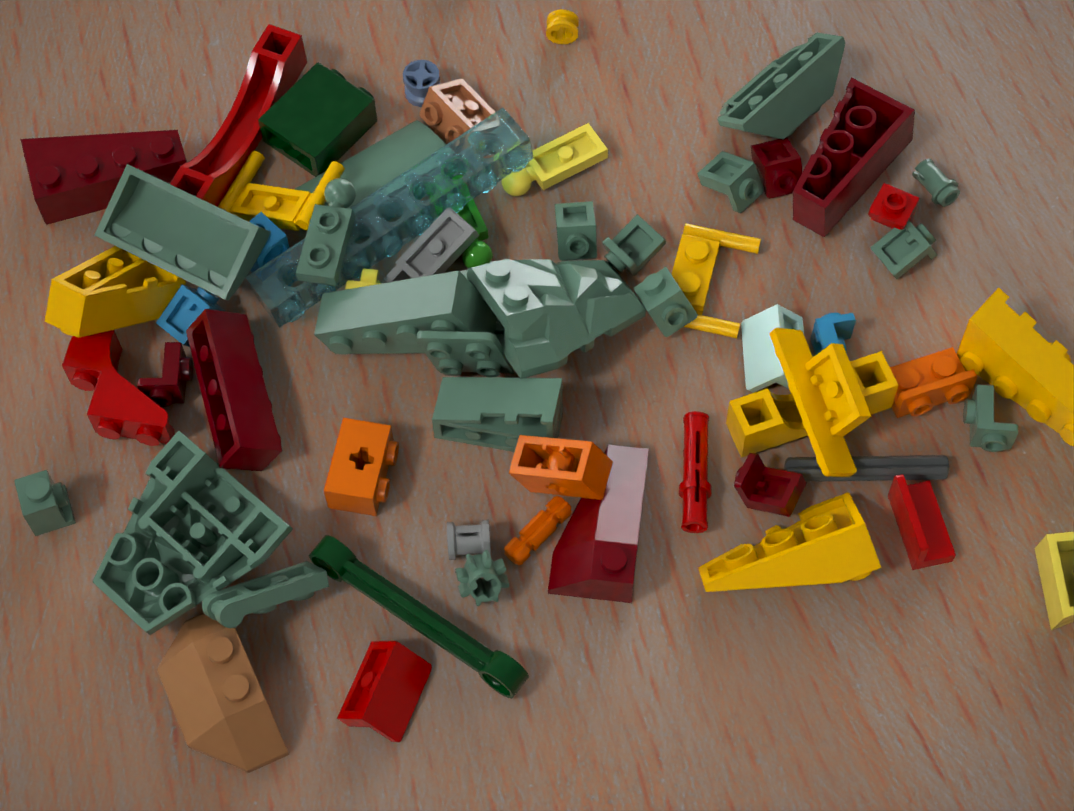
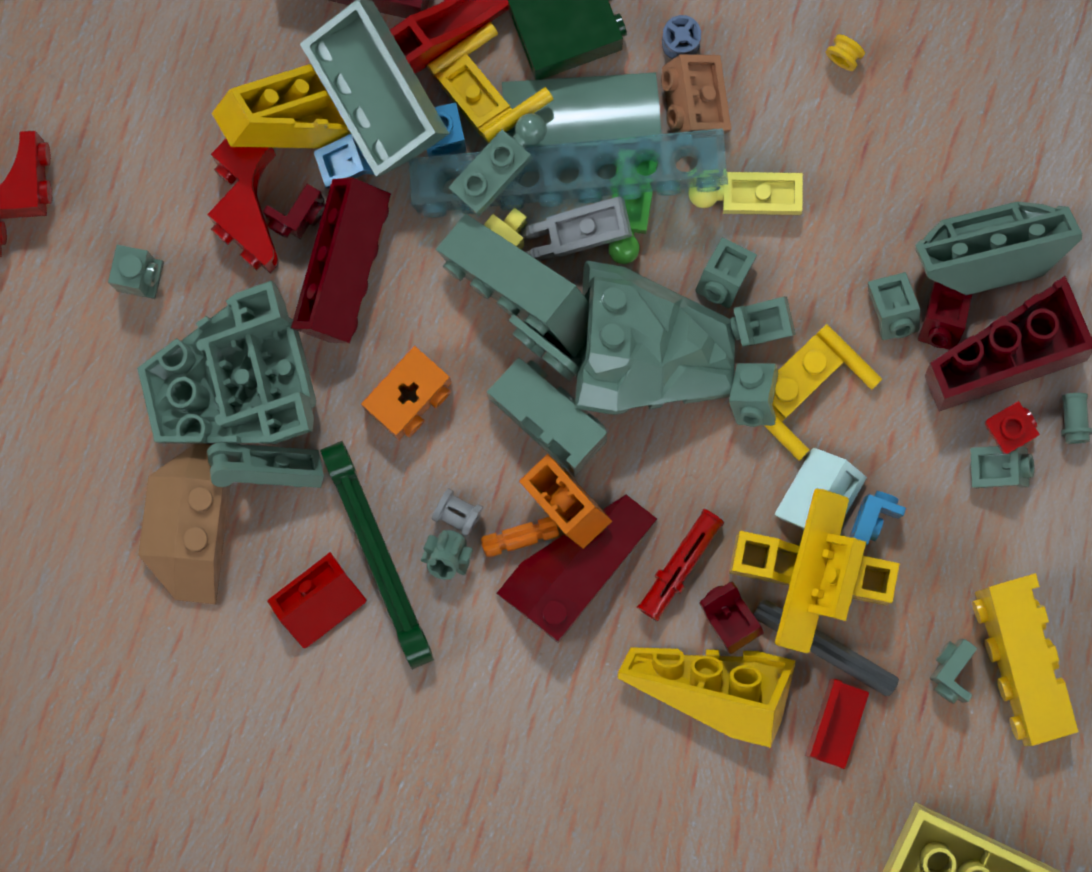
camera: 35 degrees right, 20 degrees up
(931, 382) = (932, 602): orange bracket -> none

